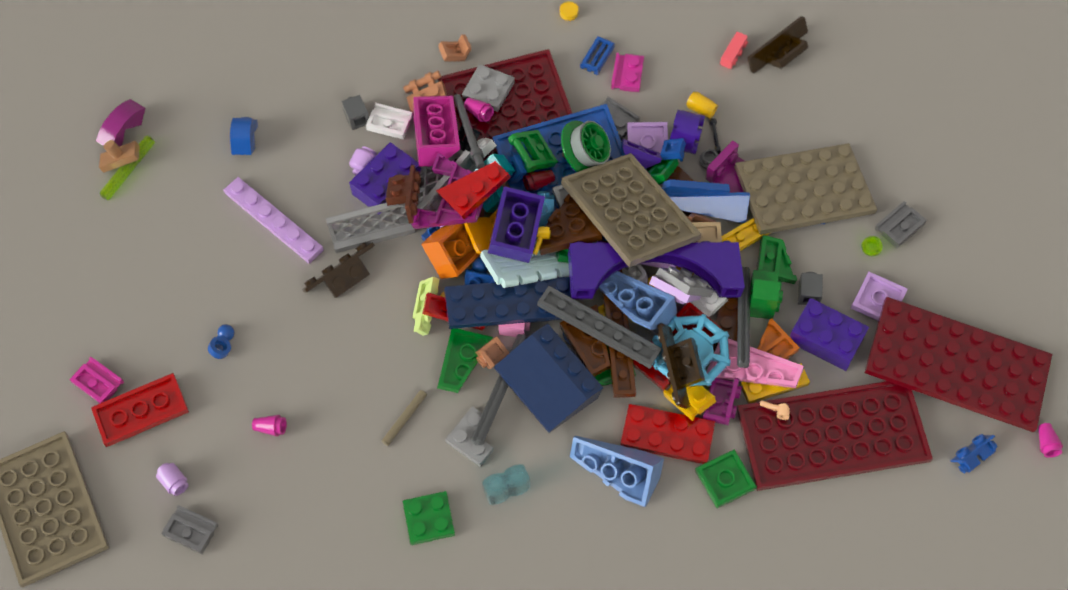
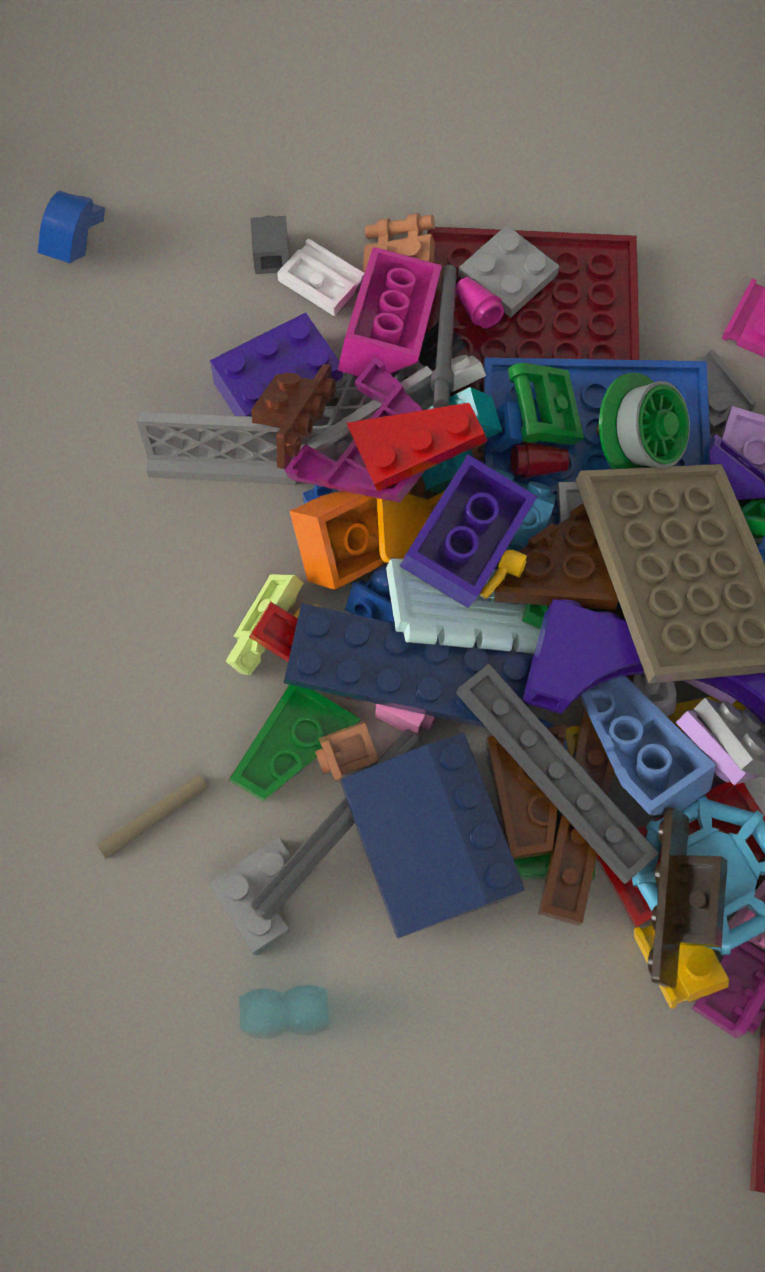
camera: 15 degrees right, 5 degrees up
(273, 220) = (66, 387): lavender plate -> none
(343, 275) = (145, 520): dark brown bracket -> none
(361, 158) = (248, 325): lavender head -> none
(428, 518) = (125, 1023): green plate -> none
(455, 50) = (476, 191): nougat bracket -> none
(568, 11) = (692, 182): yellow tile -> none
(591, 67) = (699, 289): blue tile -> none
(624, 468) = (516, 1059): medium blue wedge -> none
(668, 434) = (617, 1016): red plate -> none
(725, 478) = (698, 1146): green plate -> none

